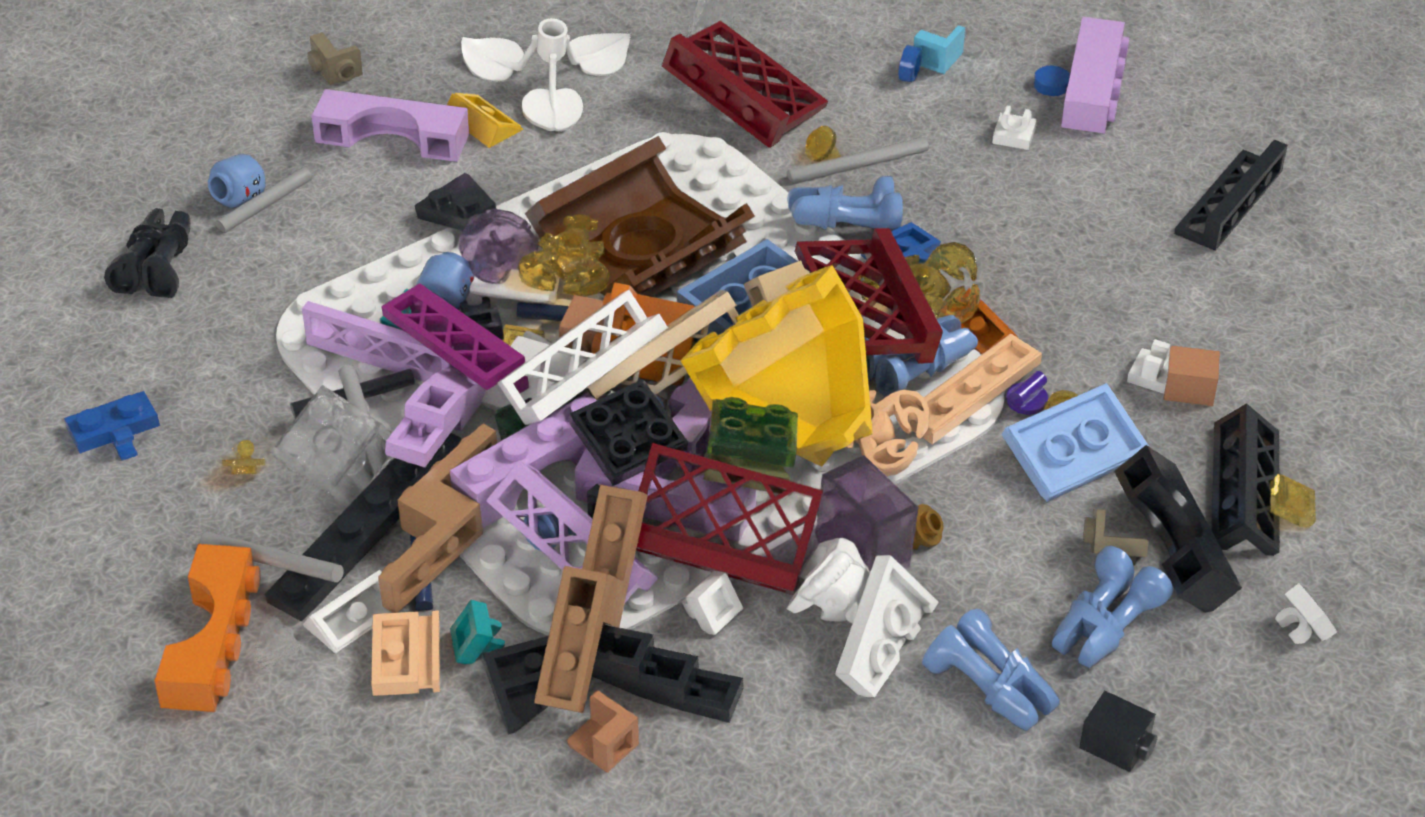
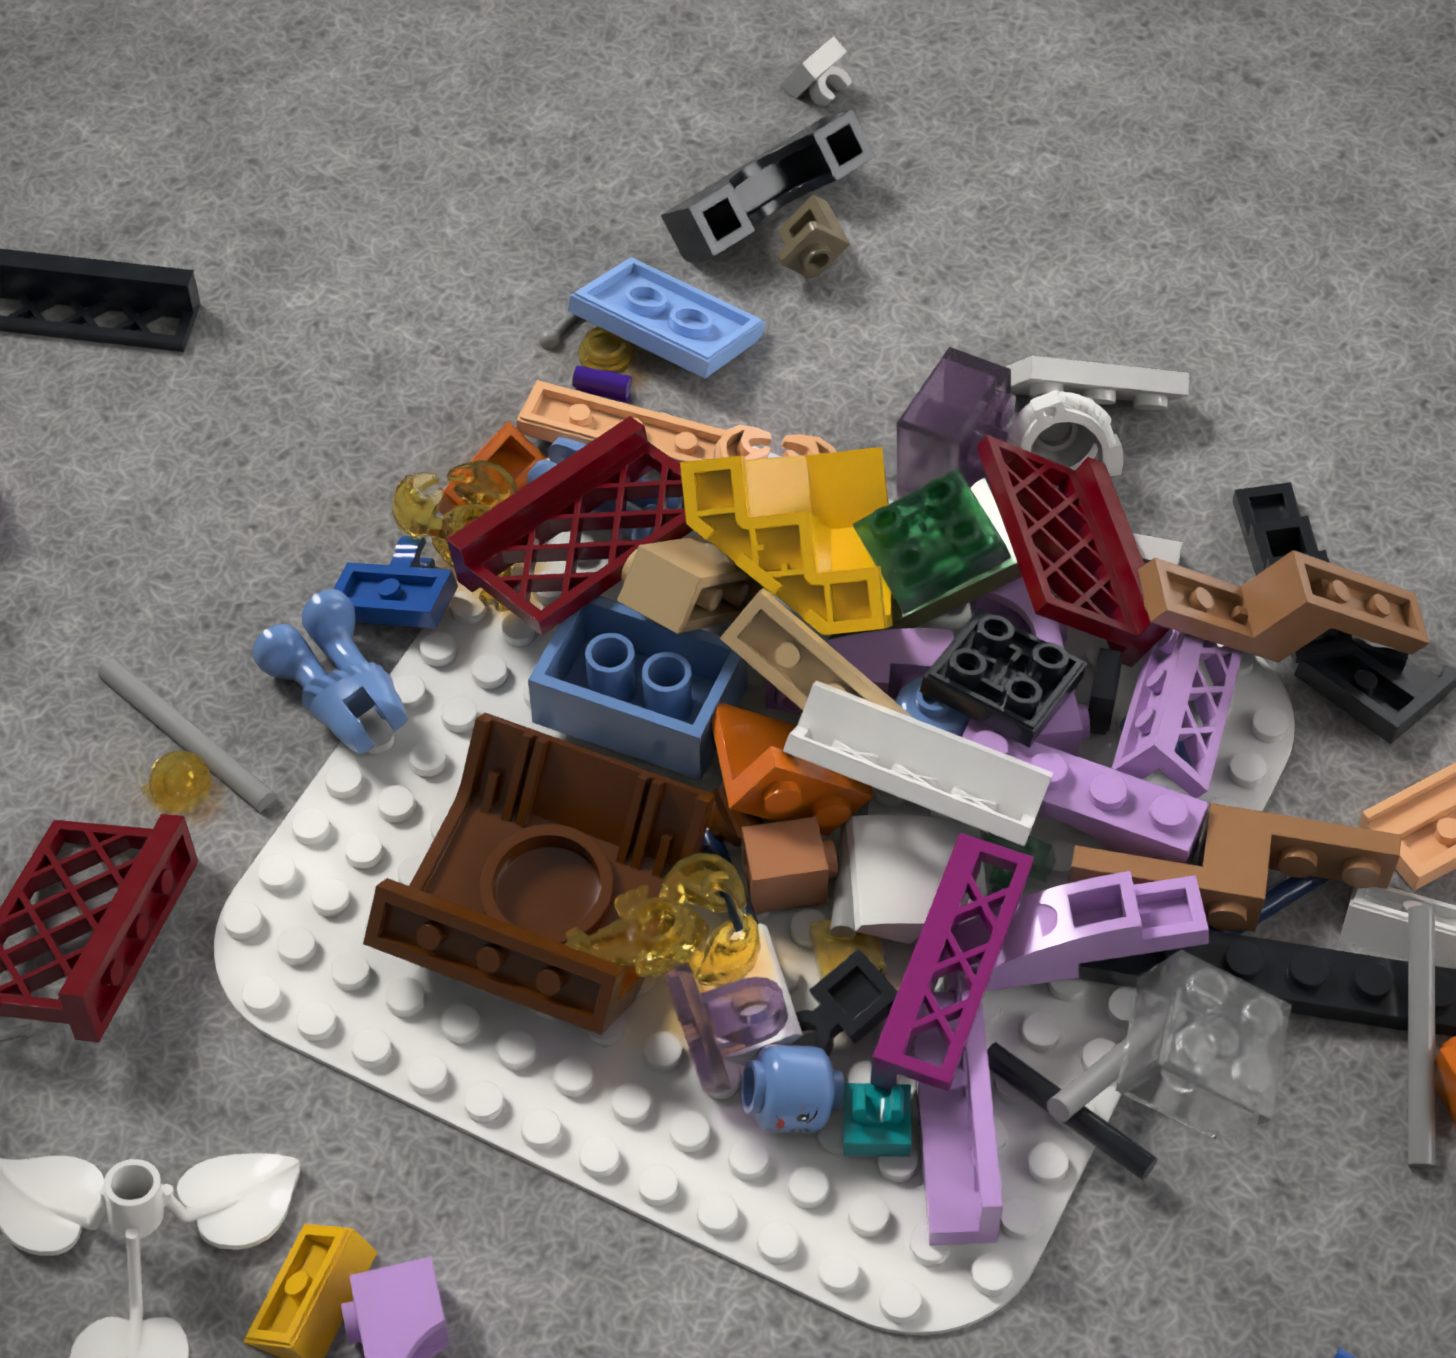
camera: 115 degrees left, 10 degrees up
(243, 463) = (1270, 1190): clear yellow plate -> none
(454, 203) = (570, 1193): black wing -> none
(474, 633) = (1364, 765): teal tile -> none
(607, 734) = (1411, 564): nougat panel -> none
(928, 527) = (881, 419): pearl gold plate -> none
(1009, 693) = (1066, 269): medium blue piece -> none
(1014, 129) = (31, 571): white tile -> none
(1089, 613) = (934, 227): medium blue piece -> none
(1118, 732) = (1084, 167): black brick -> none
(1151, 367) = (481, 293): white tile -> none
(1192, 375) = (486, 235): nougat panel -> none
(1239, 477) = (635, 170): black fence -> none
(1293, 501) = (643, 123): clear yellow tile -> none

